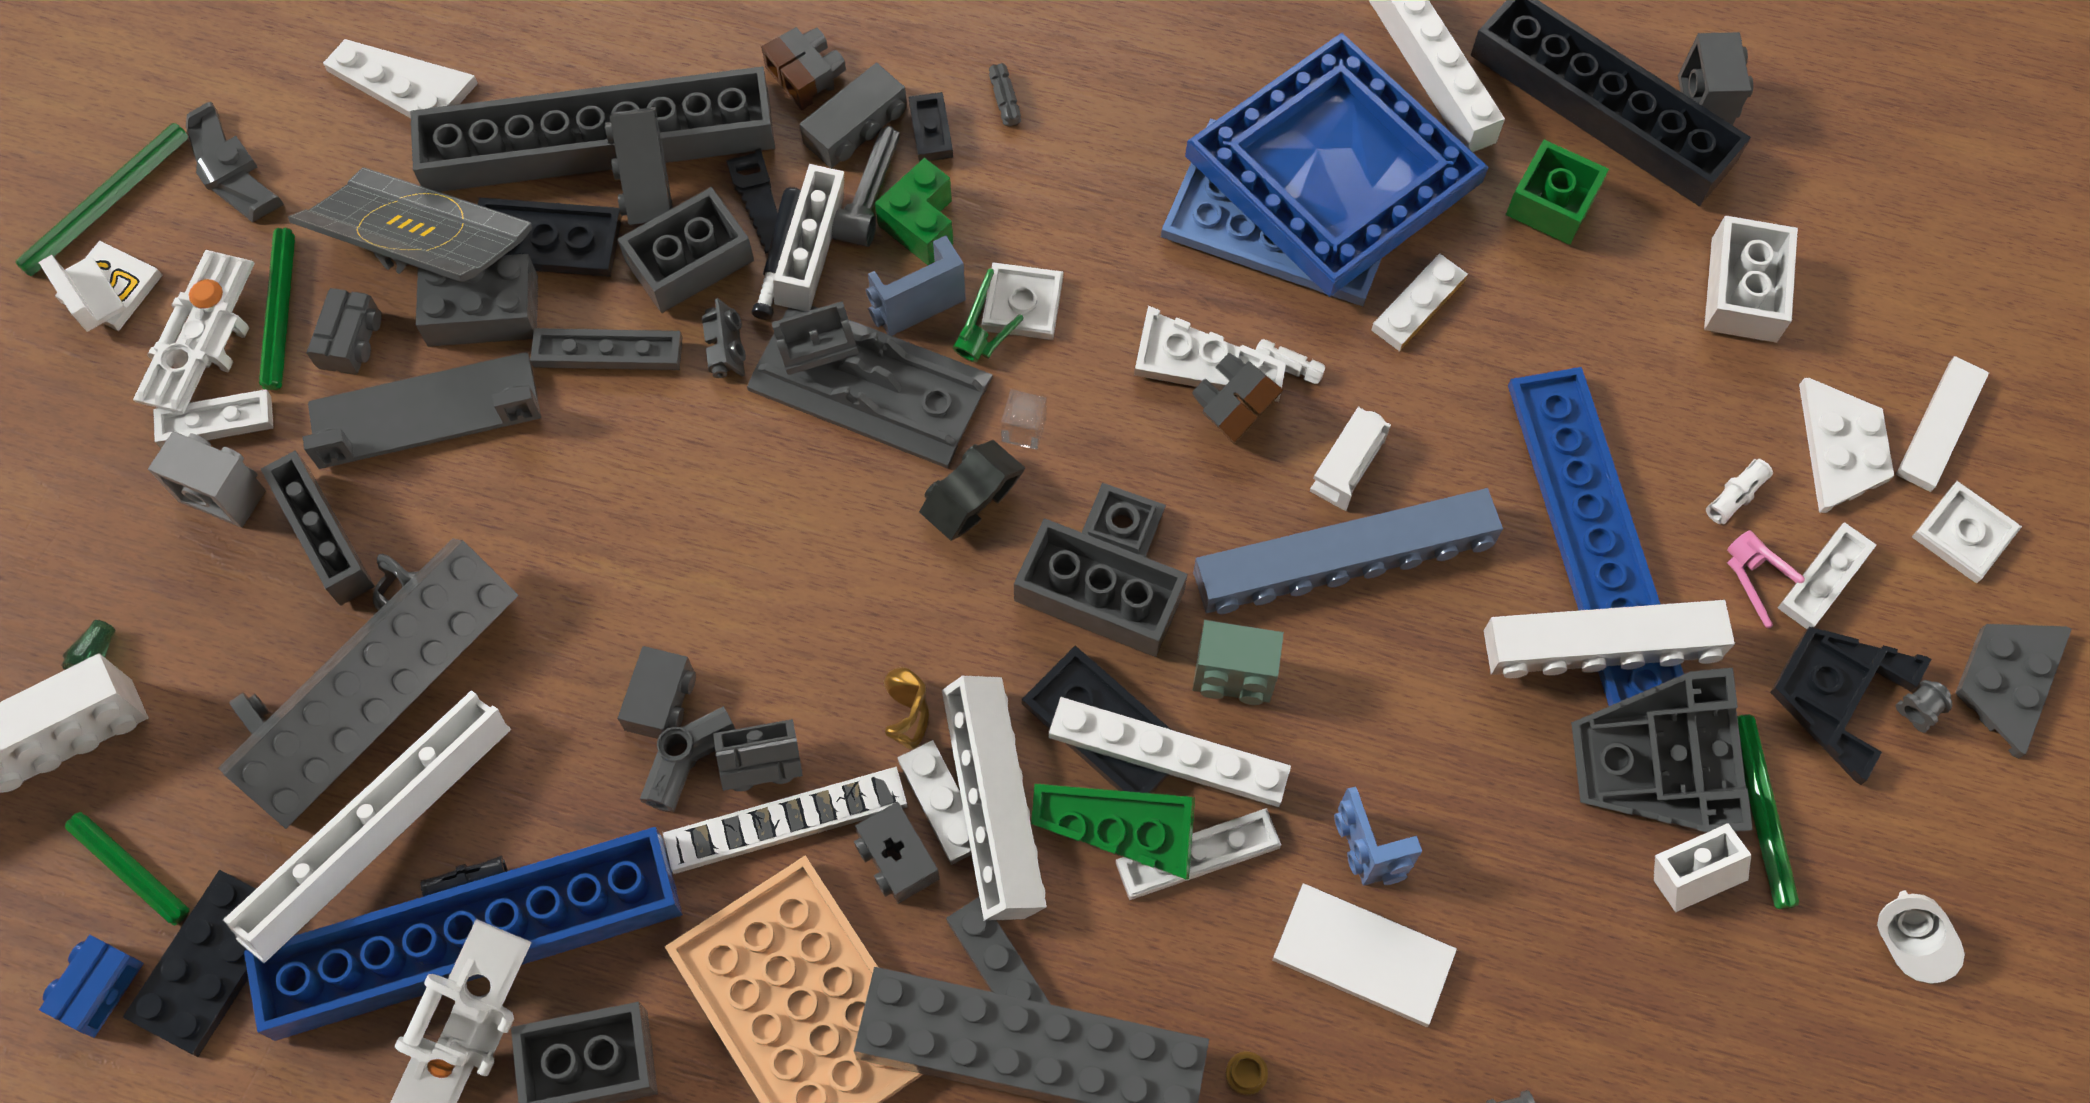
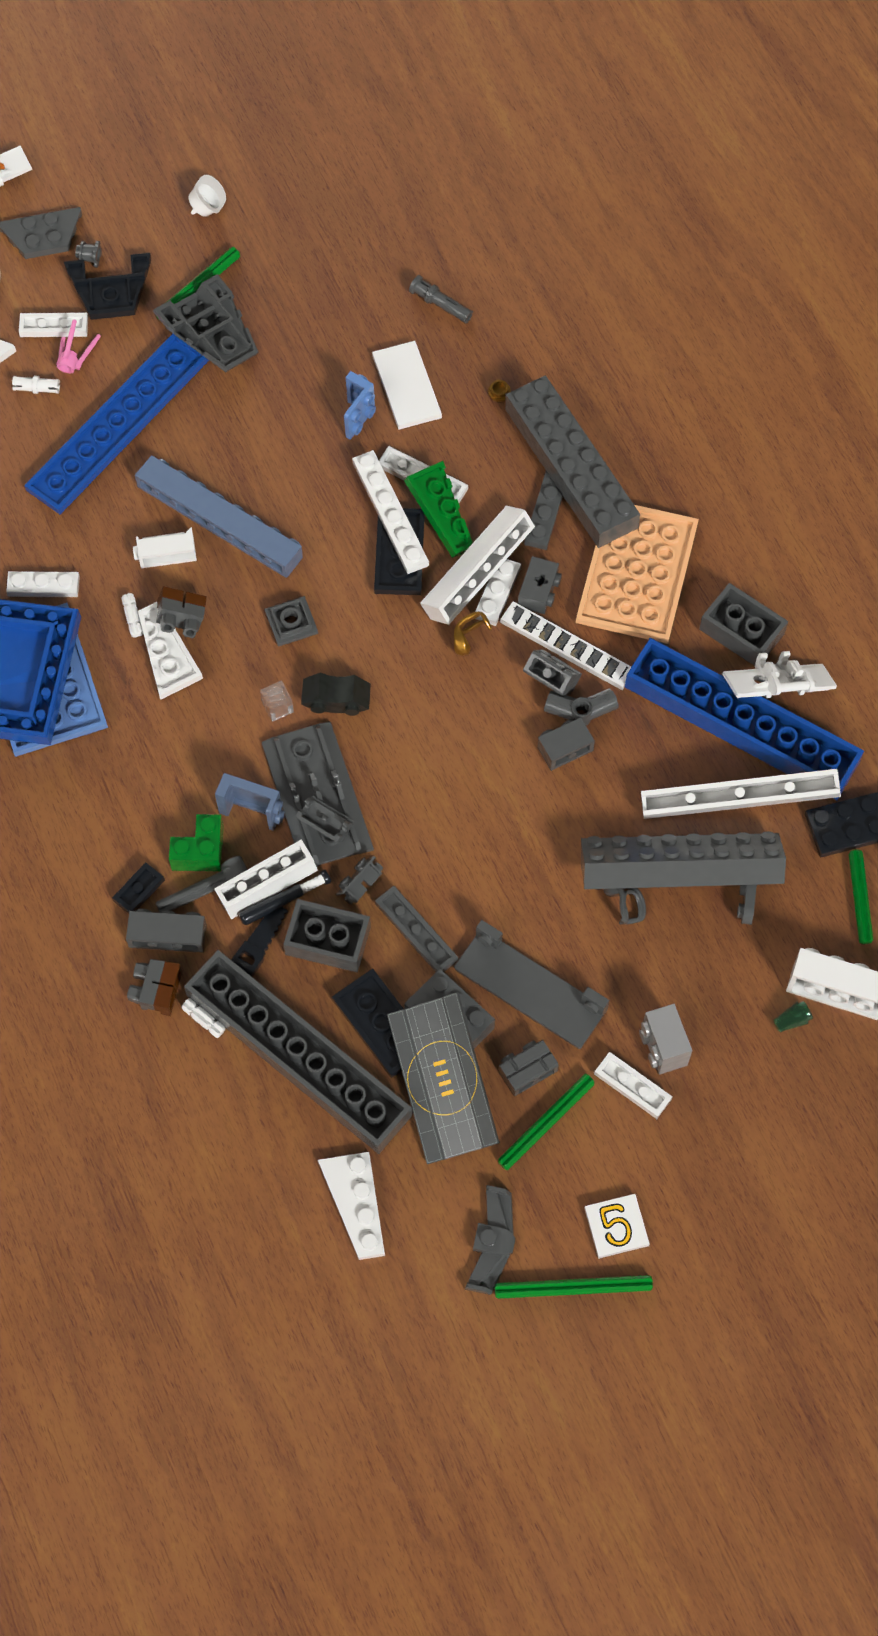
camera: 130 degrees left, 0 degrees up
(84, 291) = (632, 1223): white panel -> none
(203, 336) = (594, 1131): white piece -> none
(317, 528) = (637, 966): dark grey brick -> none
(463, 875) = (708, 740): black pin -> none
(639, 164) = (302, 992): dark grey brick -> none
(973, 339) = (252, 760): green plant -> none
(1005, 94) = (82, 871): dark grey axle -> none
(1025, 292) = (205, 762): white tile -> none
(1100, 587) = (336, 597): dark grey brick -> none
(1237, 662) = (322, 512): sand green brick -> none
(1608, 638) = (173, 378): white brick -> none
(1702, 867) = (251, 284): white brick -> none

